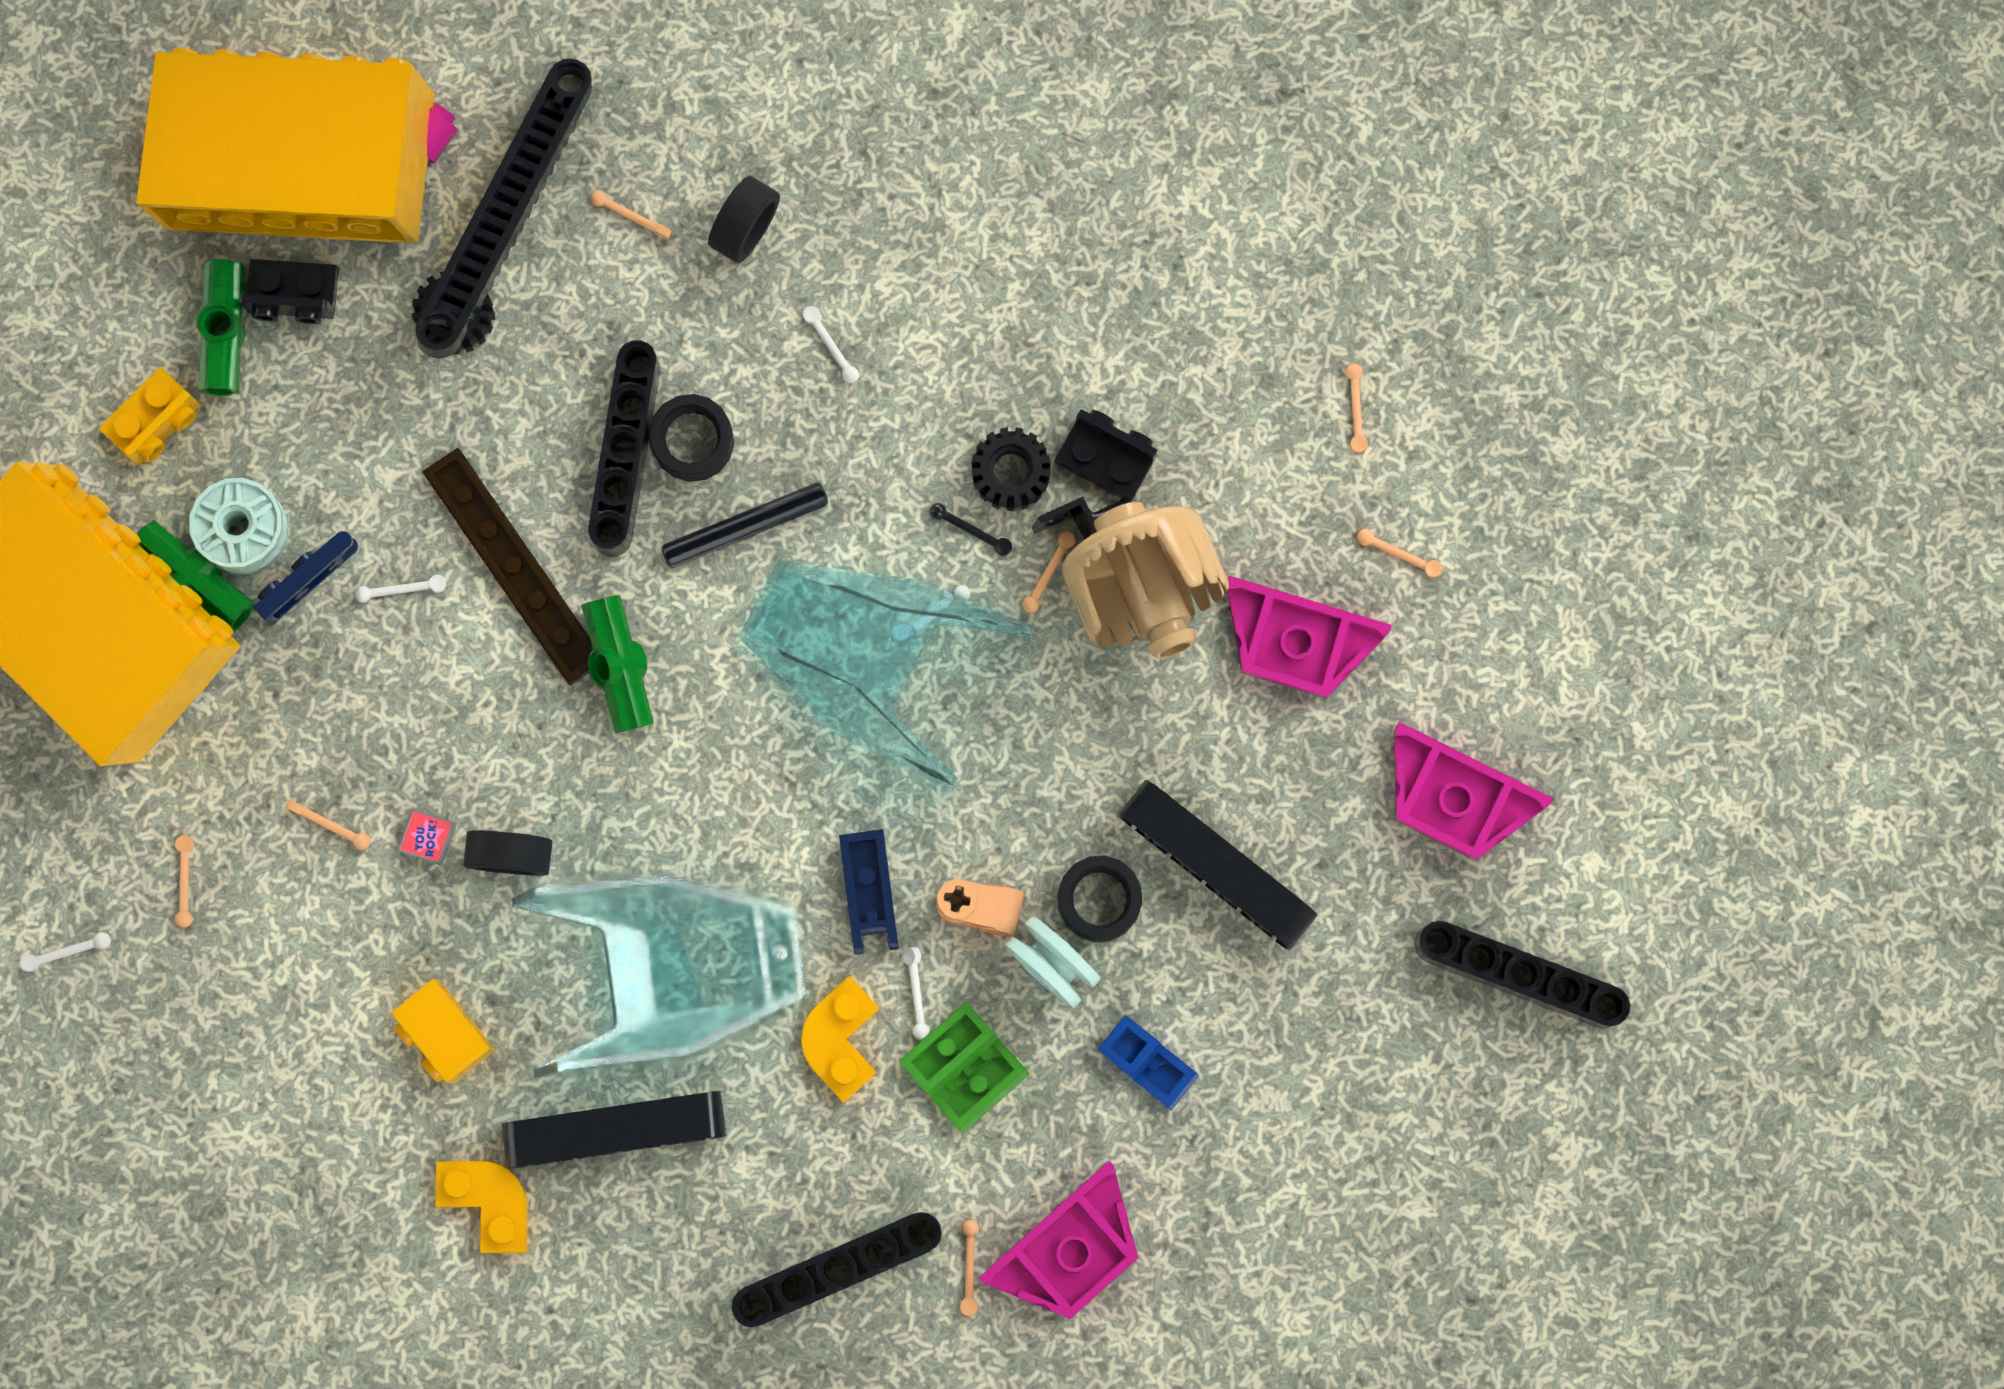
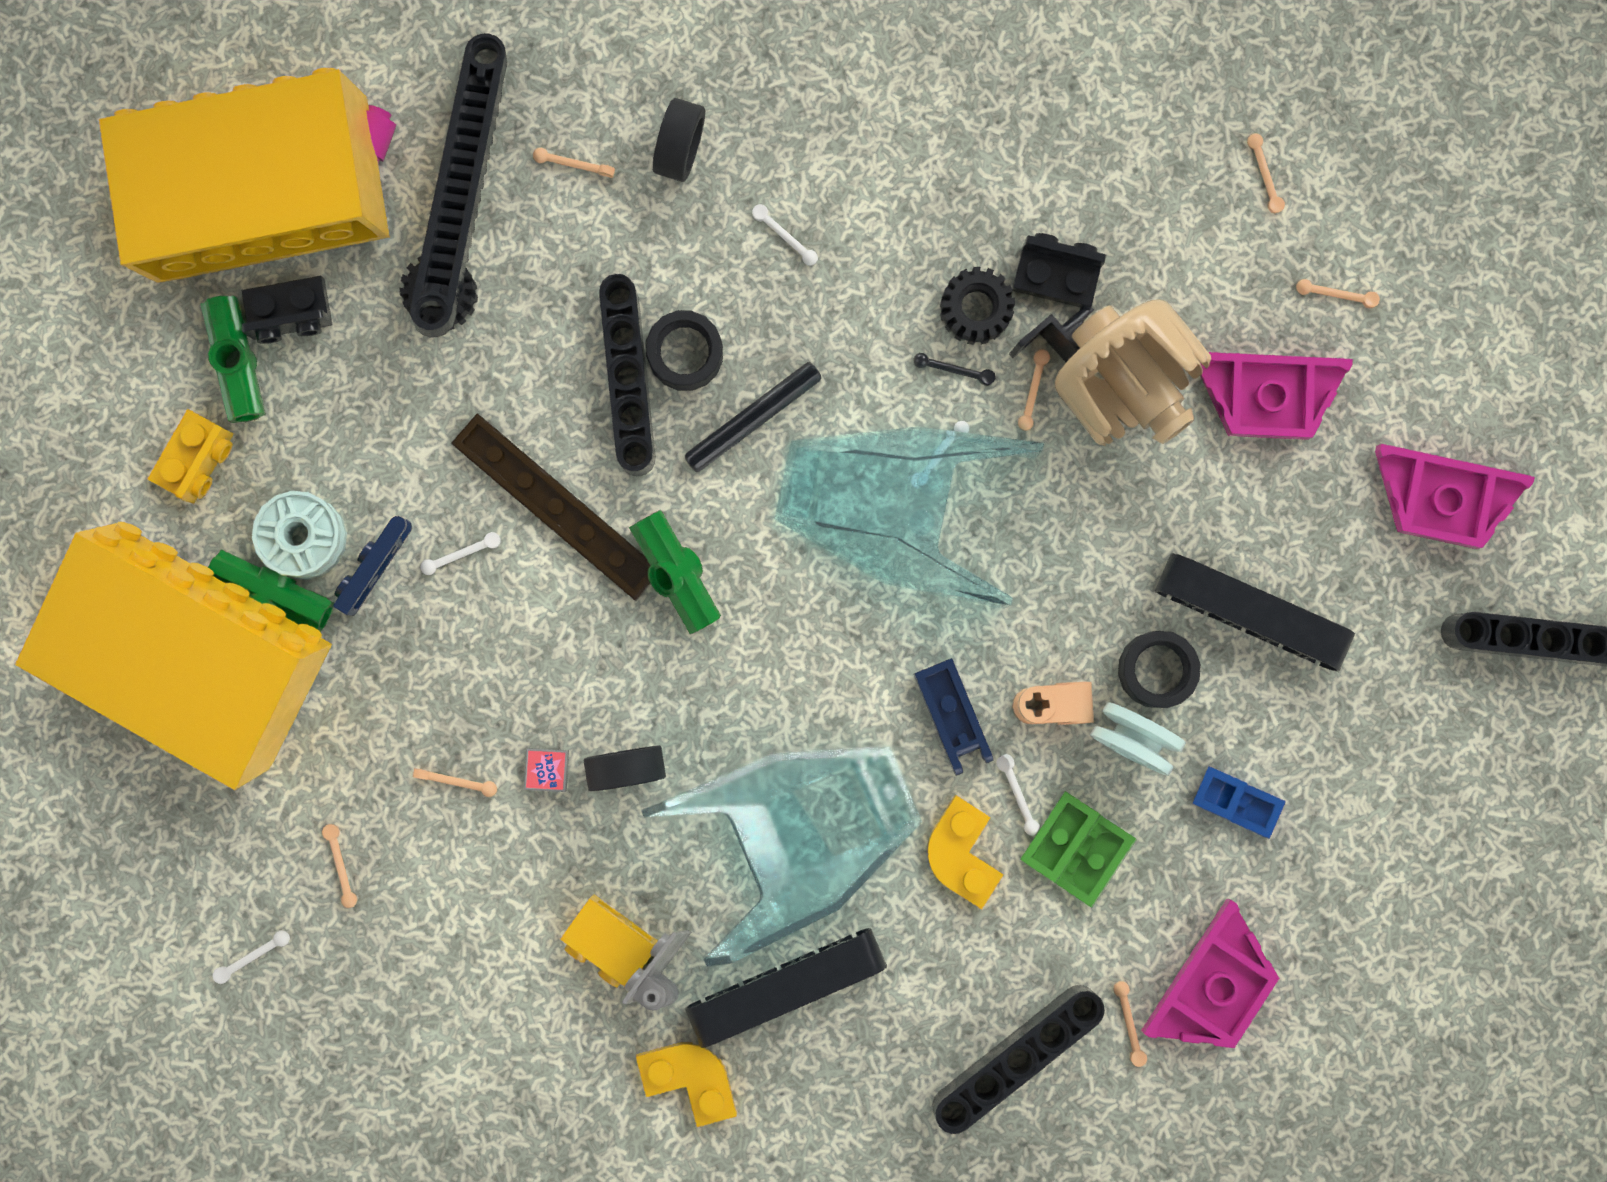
camera: 20 degrees left, 5 degrees up
(470, 1081) = (649, 985): none -> light grey hinge

